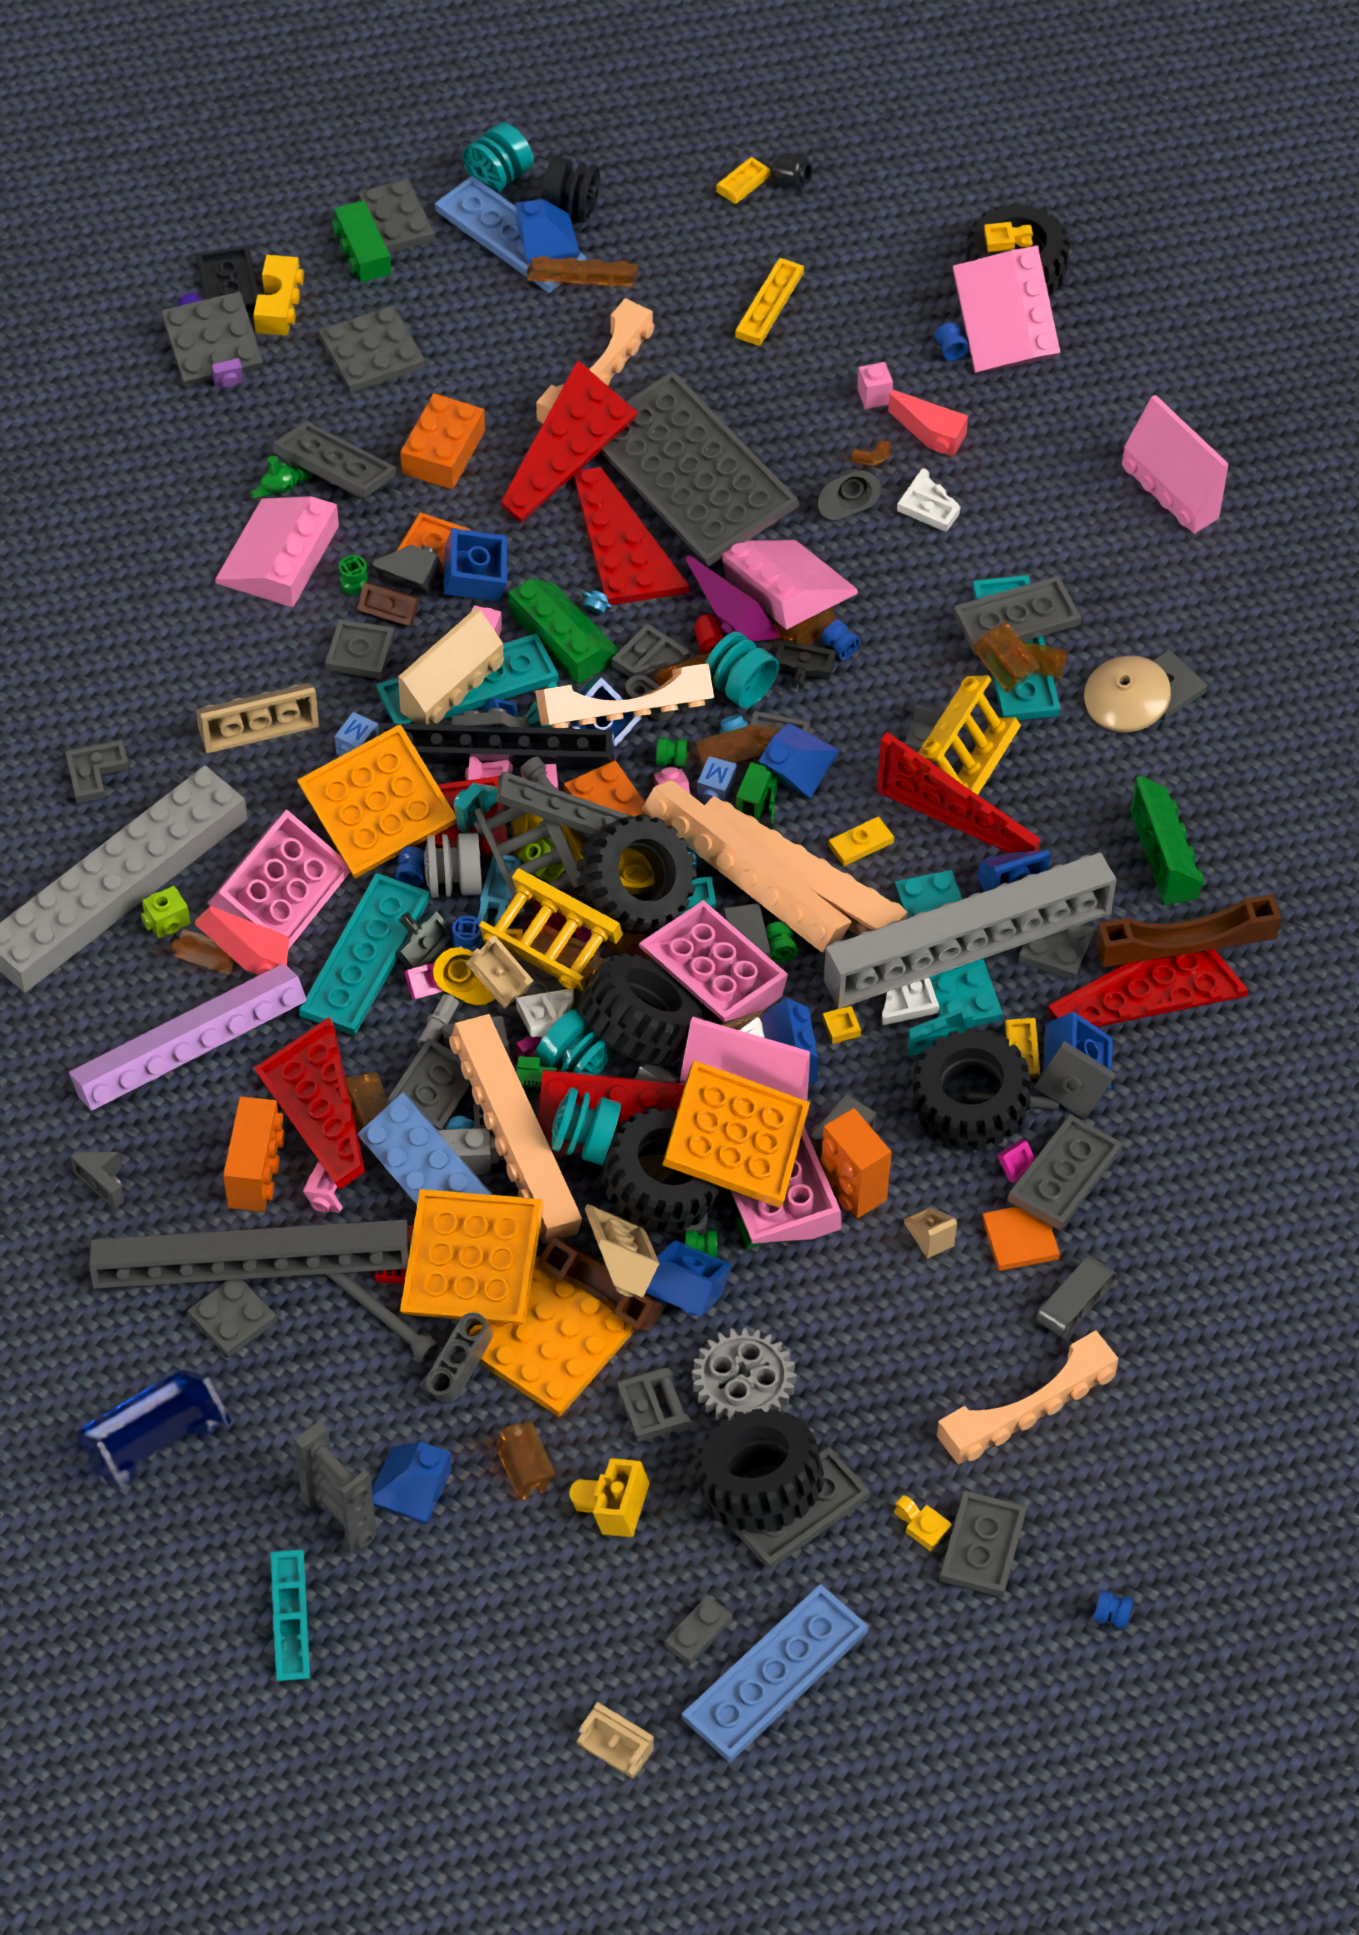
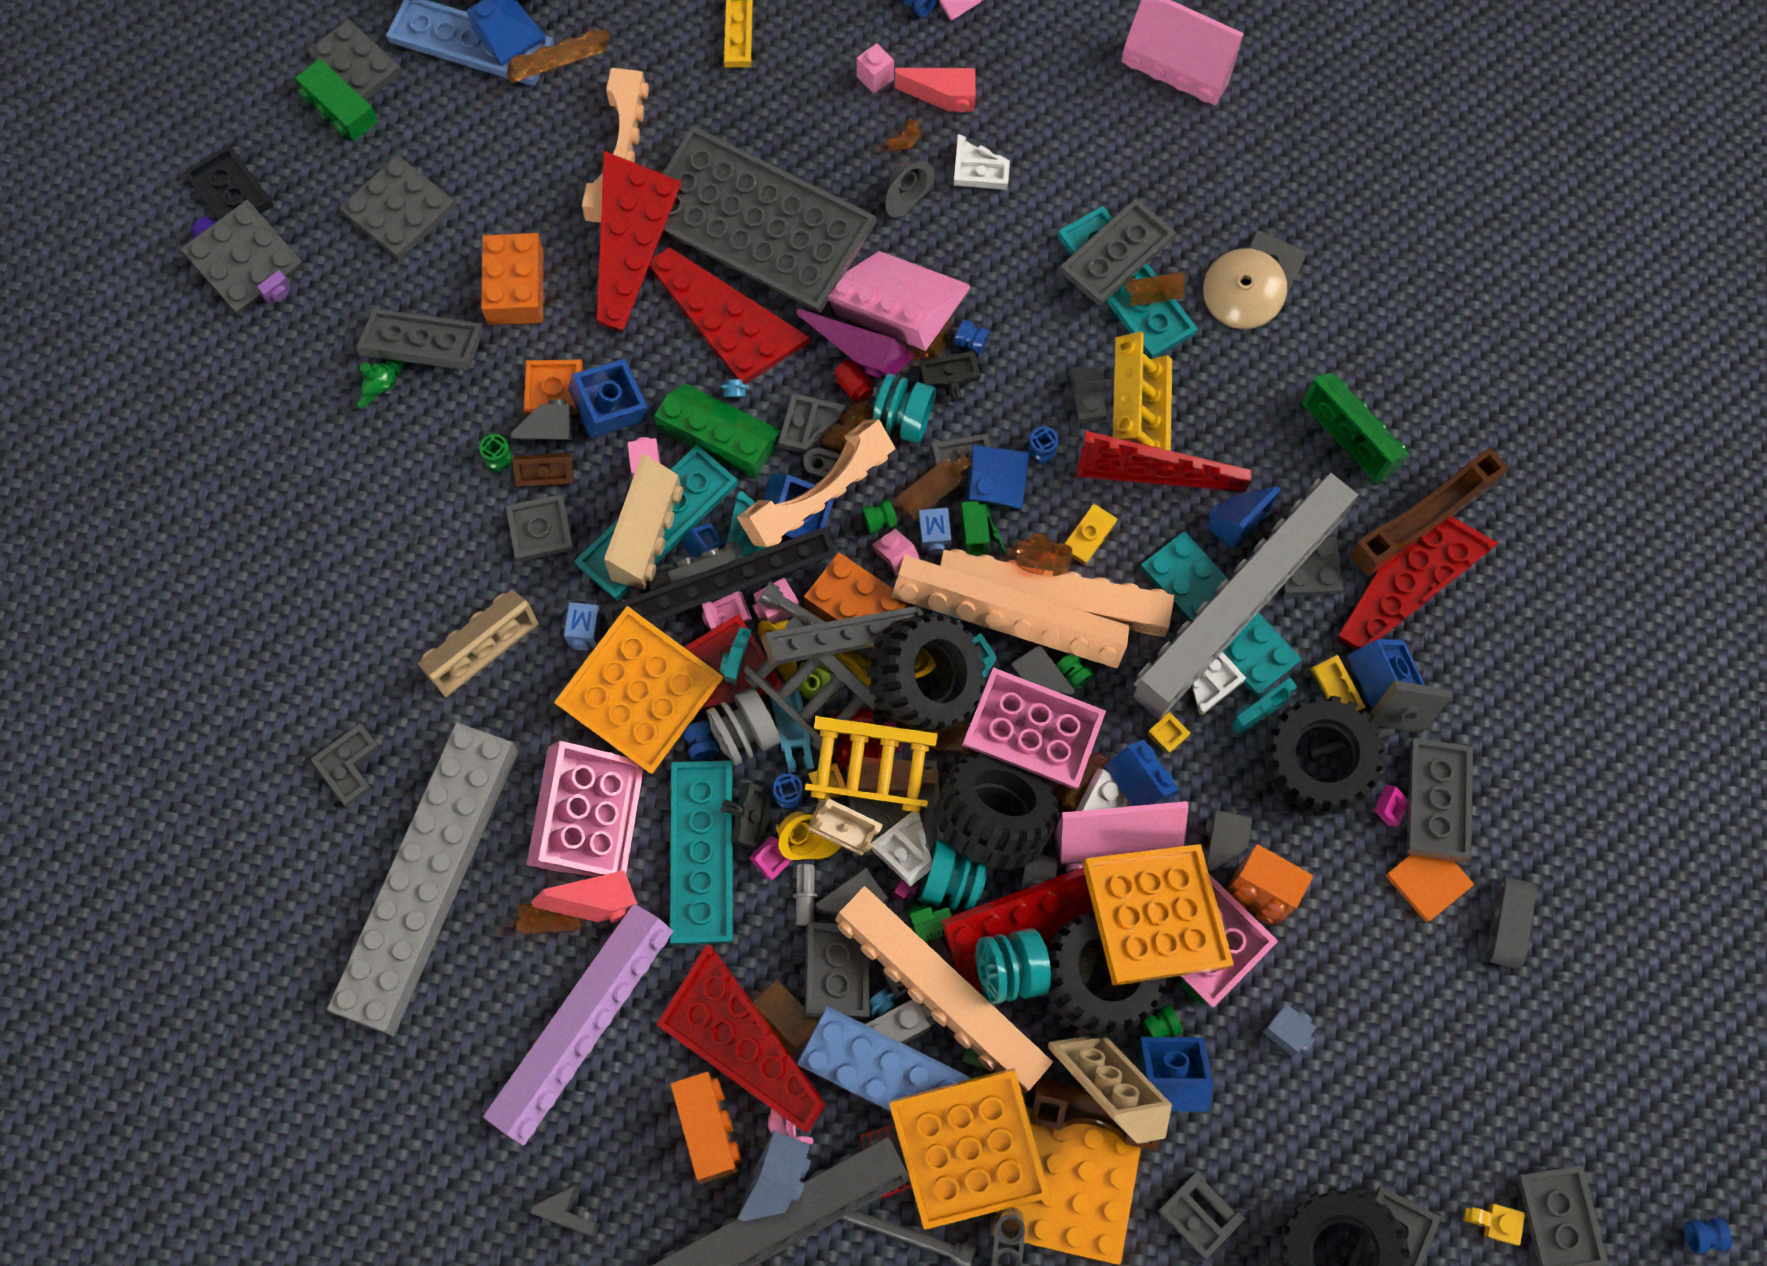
camera: 25 degrees left, 15 degrees up
(165, 912) = (491, 895): lime brick -> none
(280, 548) = (411, 452): bright pink slope -> none
(281, 279) = (288, 205): yellow arch -> none
(291, 1205) = (776, 1178): none -> sand blue slope
(732, 722) = (919, 464): dark azure plate -> none
(743, 1374) = (1291, 1165): light grey gear -> none
(804, 834) = (1041, 554): none -> clear orange plate
(817, 1295) = (1291, 1030): none -> sand blue brick
(857, 750) = (1041, 451): none -> blue wheel
(932, 1230) = (1352, 910): tan slope -> none
(972, 1431) = (1556, 992): light nougat arch -> none
(1006, 656) = (1134, 300): clear orange hinge -> none

